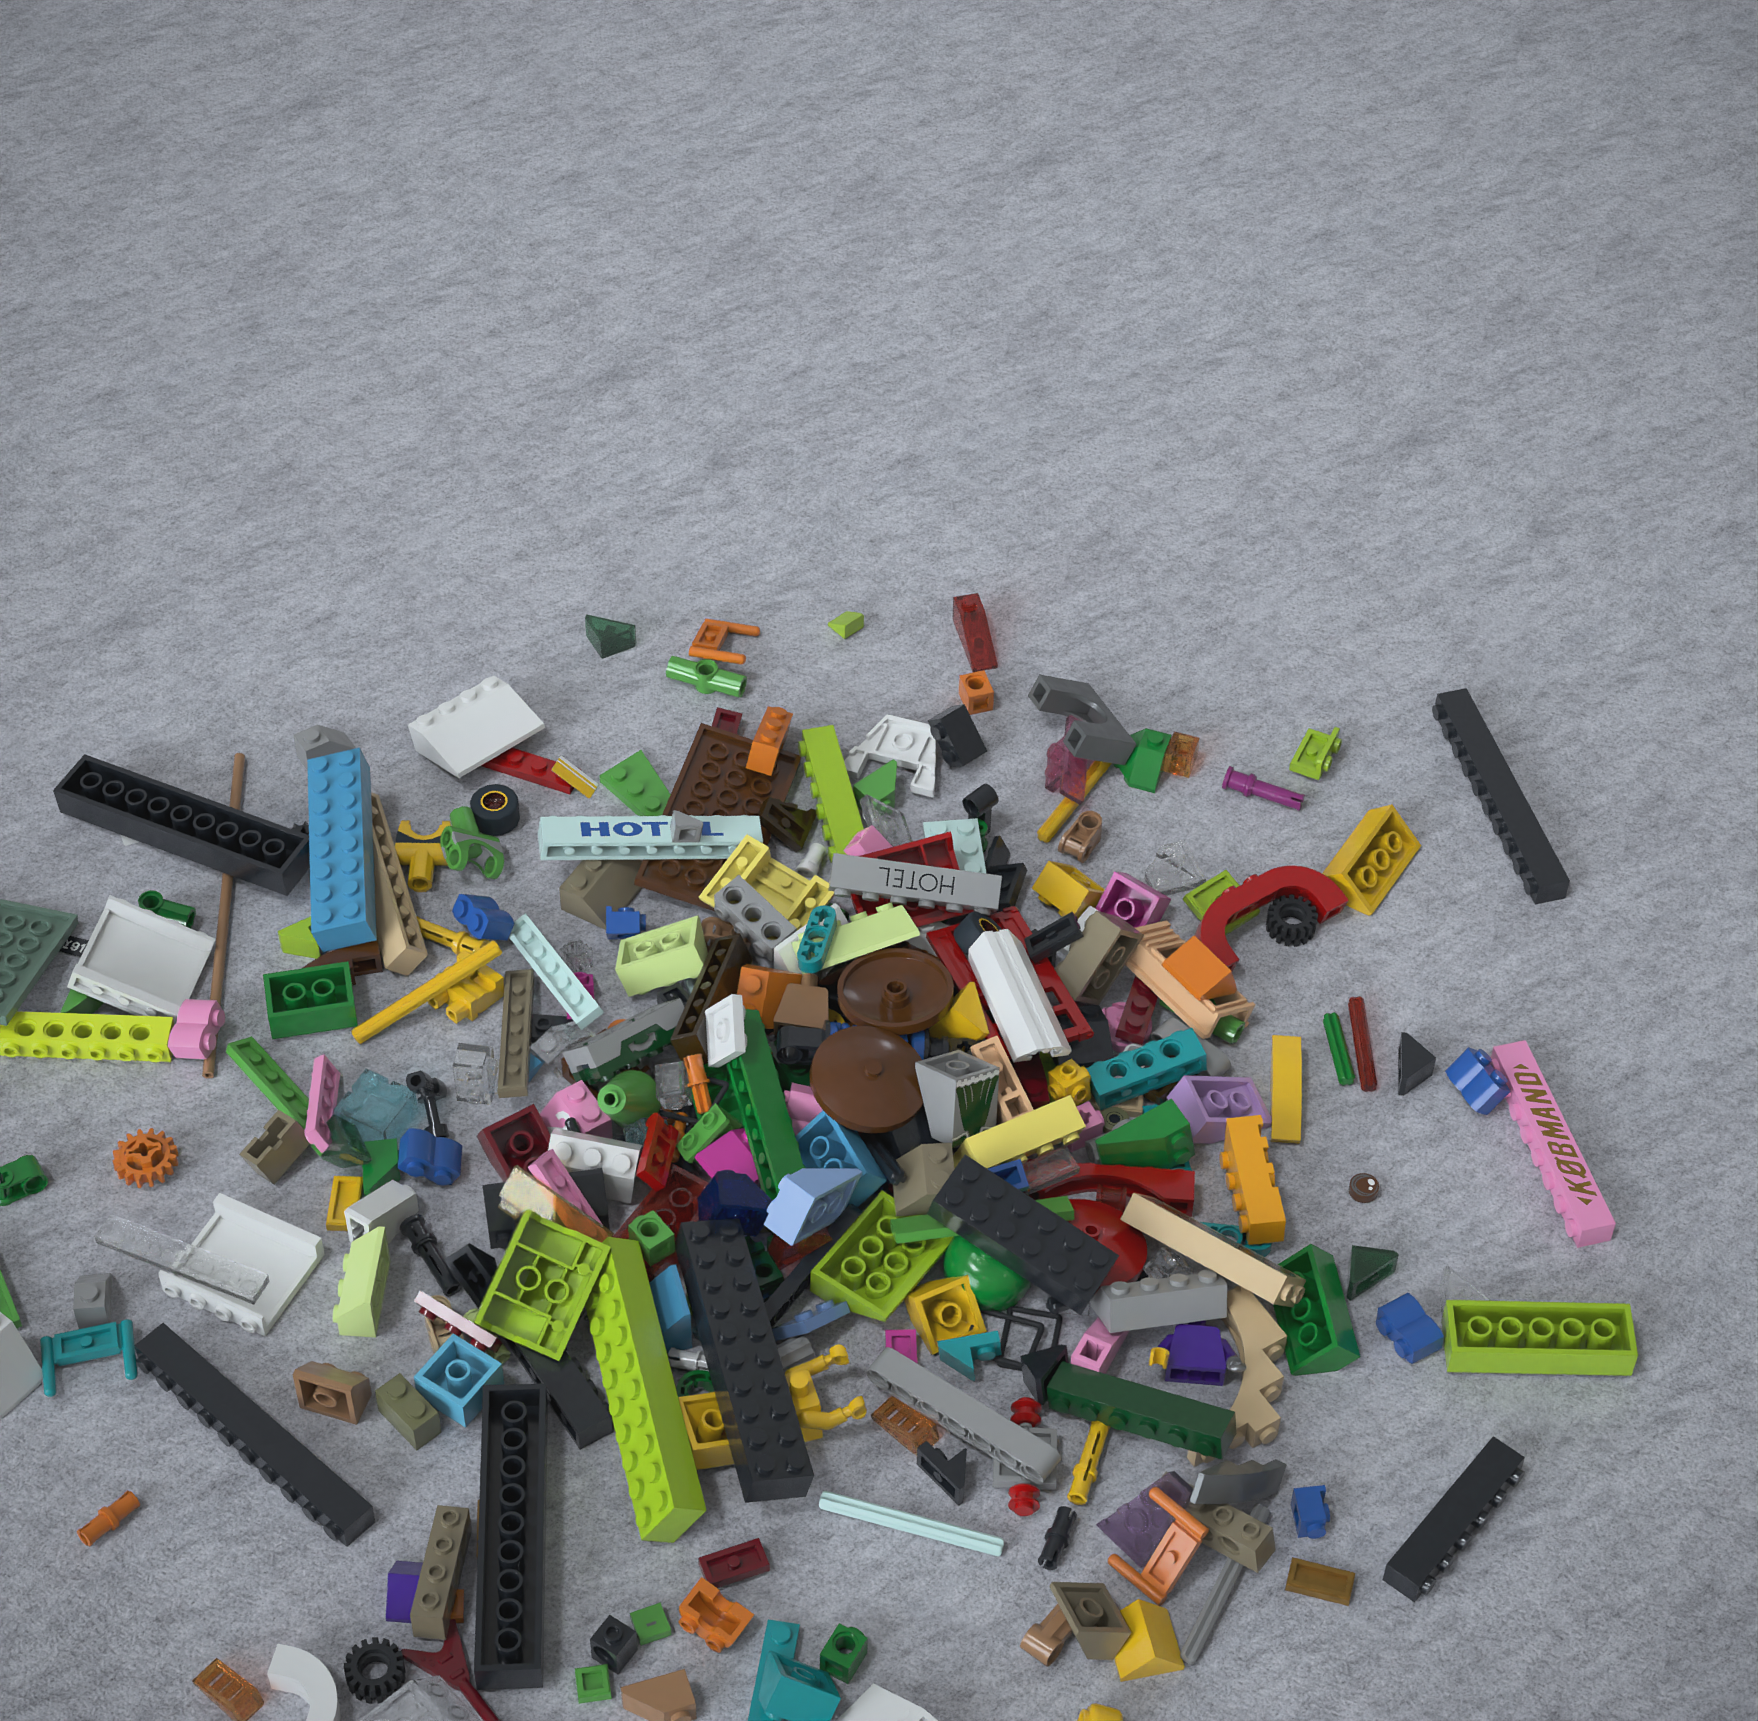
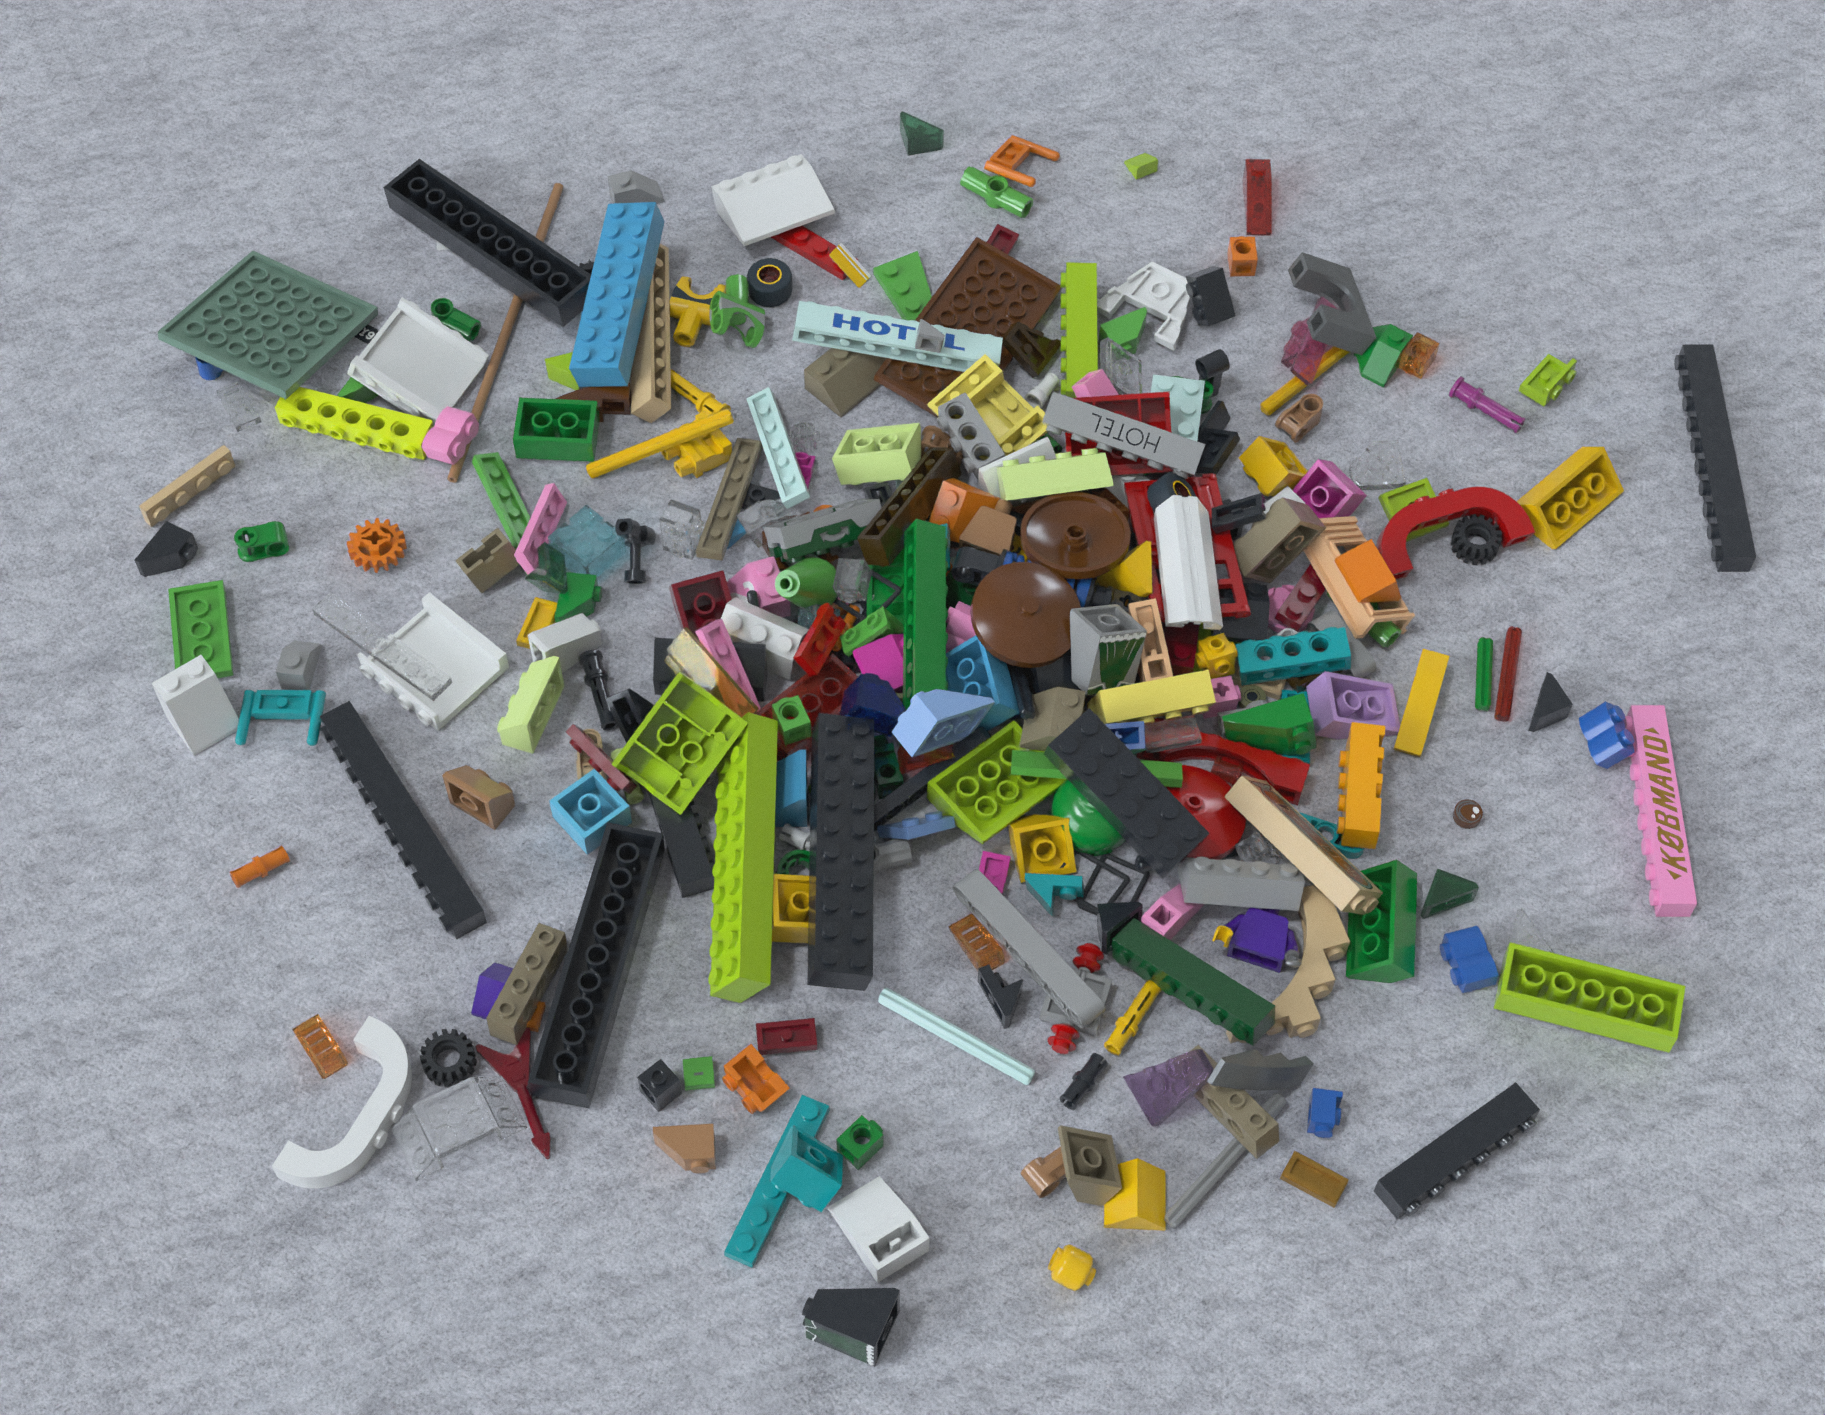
camera: 15 degrees right, 10 degrees up
(408, 1411) = (539, 829): olive brick -> none
(430, 1156) = (621, 598): blue brick -> none
(483, 917) = (729, 383): blue brick -> none
(593, 1683) = (633, 1115): bright green tile -> none
(624, 923) = (855, 414): blue brick -> none
(698, 1082) = (874, 582): orange axle -> none
(725, 1030) = (907, 541): white plate -> none
(769, 740) = (1035, 263): orange arch -> none
(806, 1400) = (886, 900): yellow torso -> none
(820, 948) = (1015, 480): teal beam -> none
(1171, 1554) = (1179, 1124): orange plate -> none

